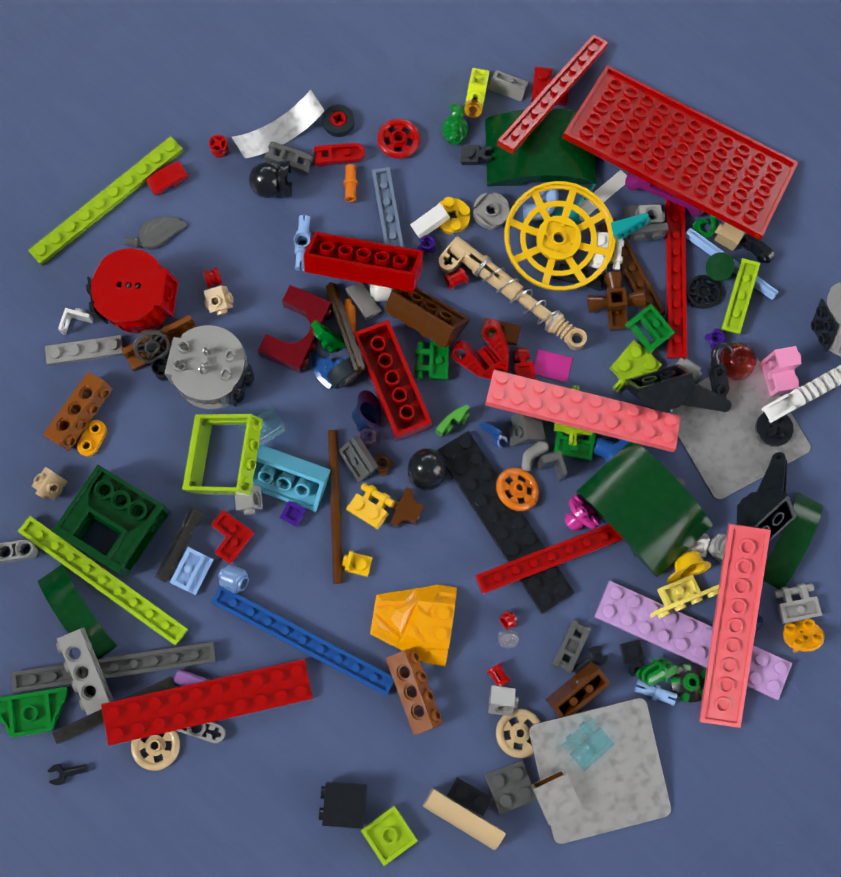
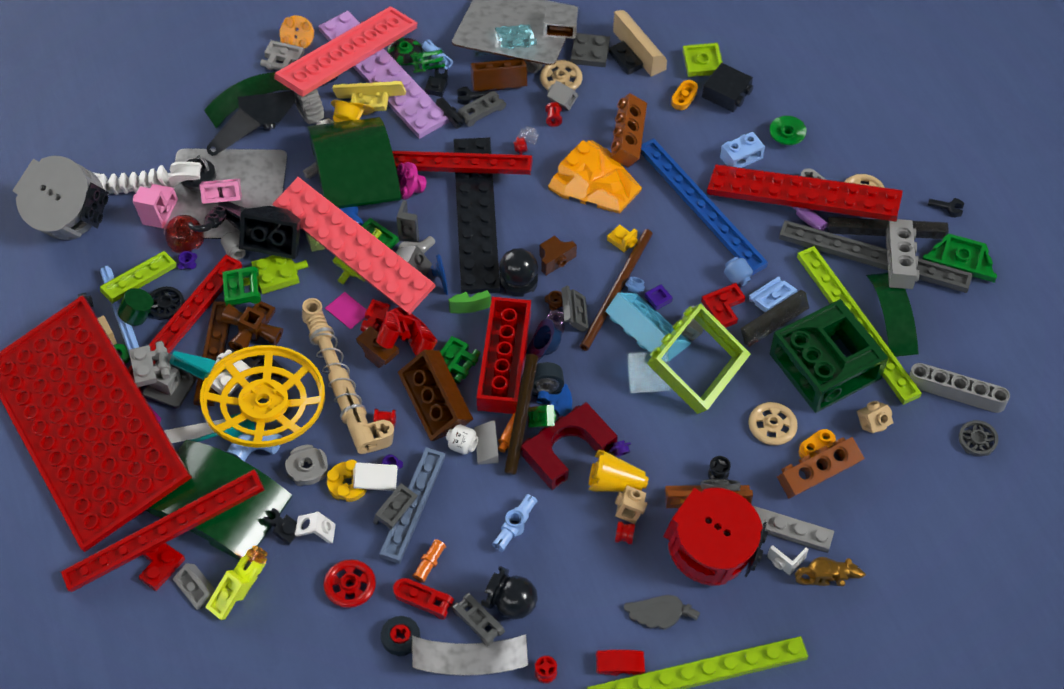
camera: 145 degrees left, 20 degrees down
(41, 324) = (824, 570): none -> pearl gold animal
(125, 430) = (761, 433): none -> tan plate
(209, 367) = (673, 440): light grey piece -> none
(244, 316) = (614, 474): none -> yellow cone
(248, 781) = (788, 130): none -> green dish
(251, 347) = (620, 448): none -> dark purple plate
(293, 728) = (742, 151): none -> light blue brick
(317, 519) = (635, 284): none -> medium blue plate
(363, 261) = (467, 461): red brick -> none
(368, 511) = (590, 267): yellow plate -> none
(384, 774) = (682, 98): none -> light orange plate
(400, 205) = (395, 506): none -> dark grey panel
(446, 163) = (318, 524): none -> white bracket
(455, 126) = (282, 566): green hair -> none
(530, 482) = (449, 225): orange plate -> none
(598, 623) = (449, 112): none -> black axle
(668, 208) = (143, 365): none -> light grey plate
(737, 413) = (220, 191): none -> bright pink brick

